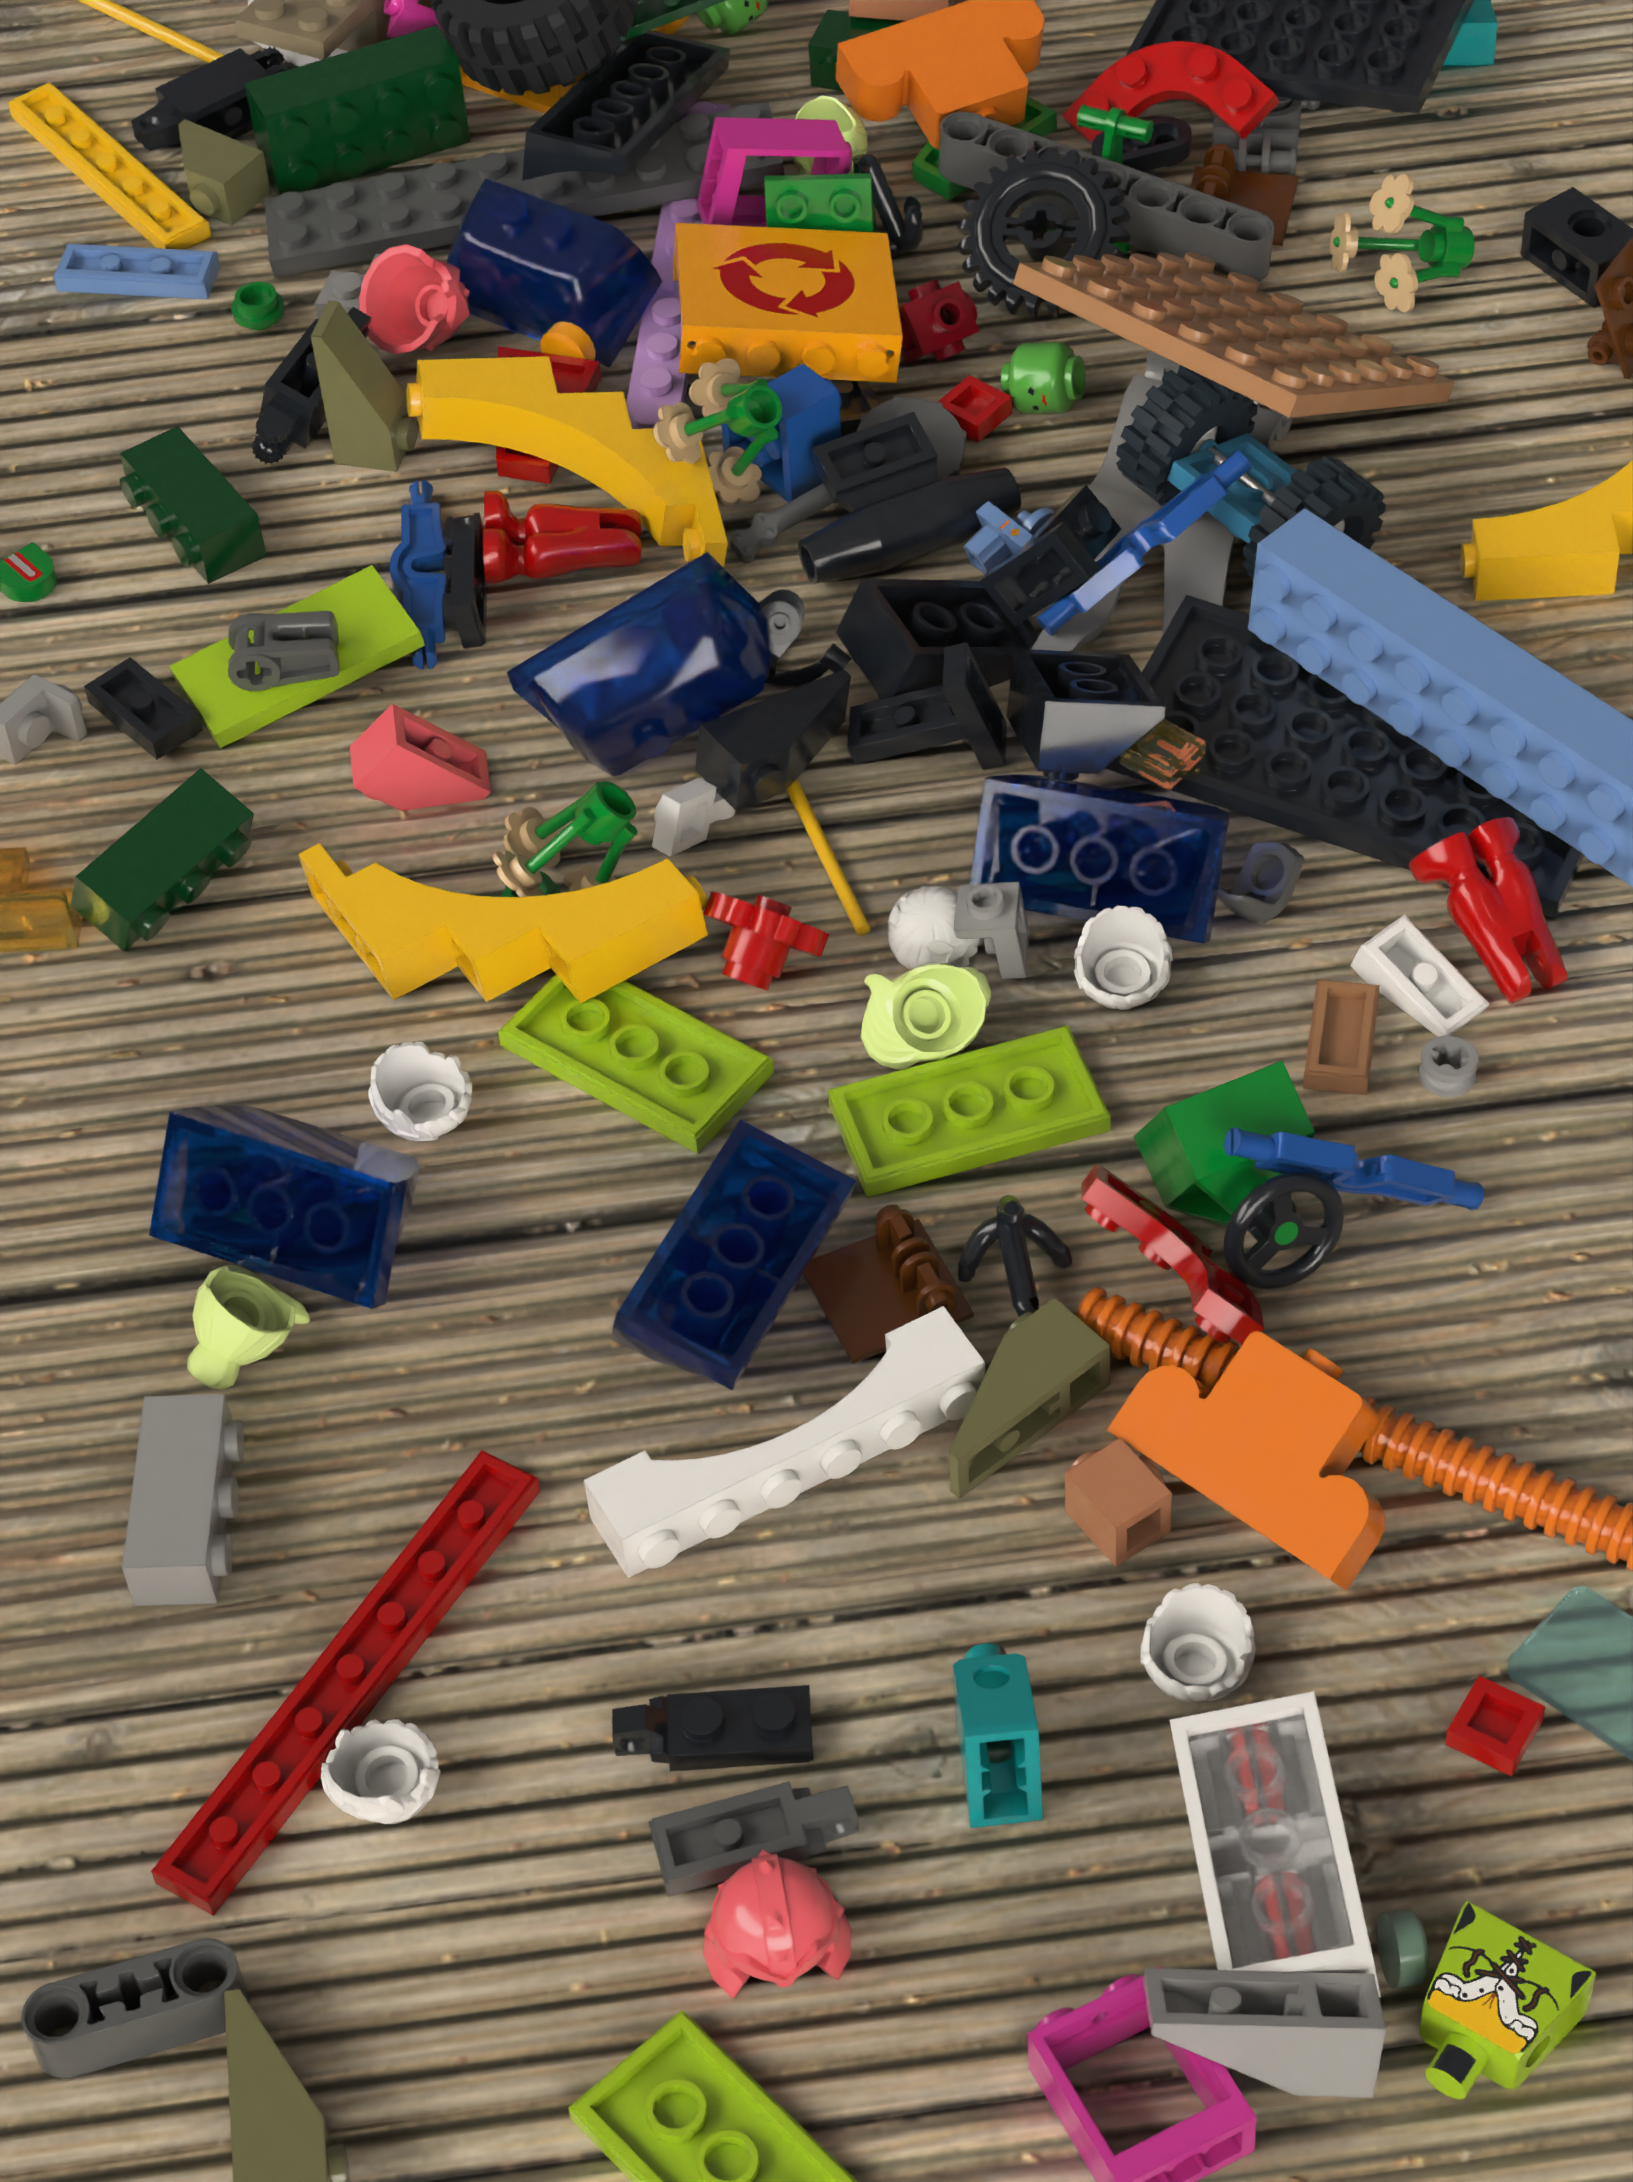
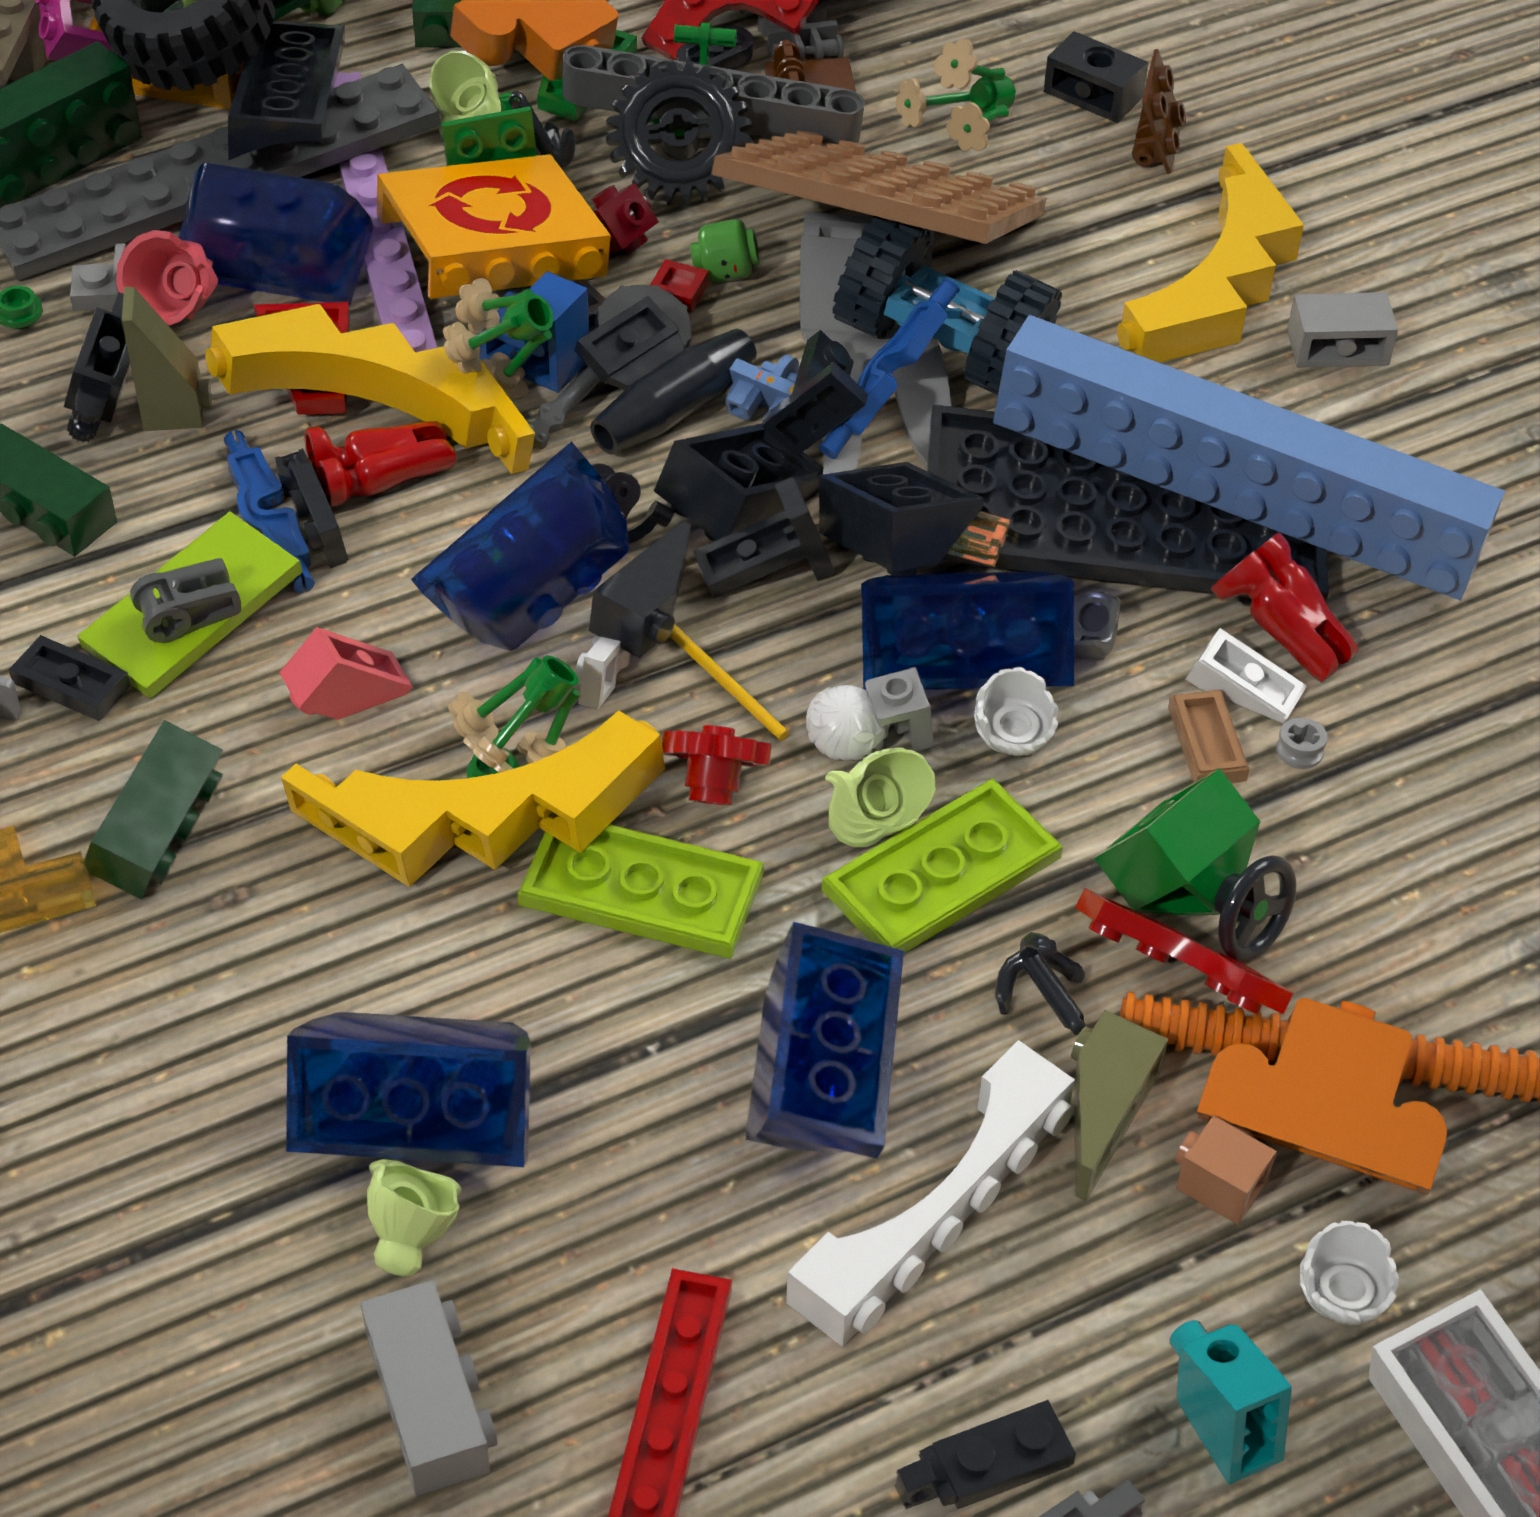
camera: 25 degrees left, 0 degrees up
(419, 1091) = (477, 963): white hair -> none
(568, 340) = (313, 289): light orange tile -> none
(742, 137) = (403, 108): dark pink window -> none
(883, 1283) = (950, 1035): reddish brown hinge -> none
(1339, 1164) = (1293, 844): blue piece -> none

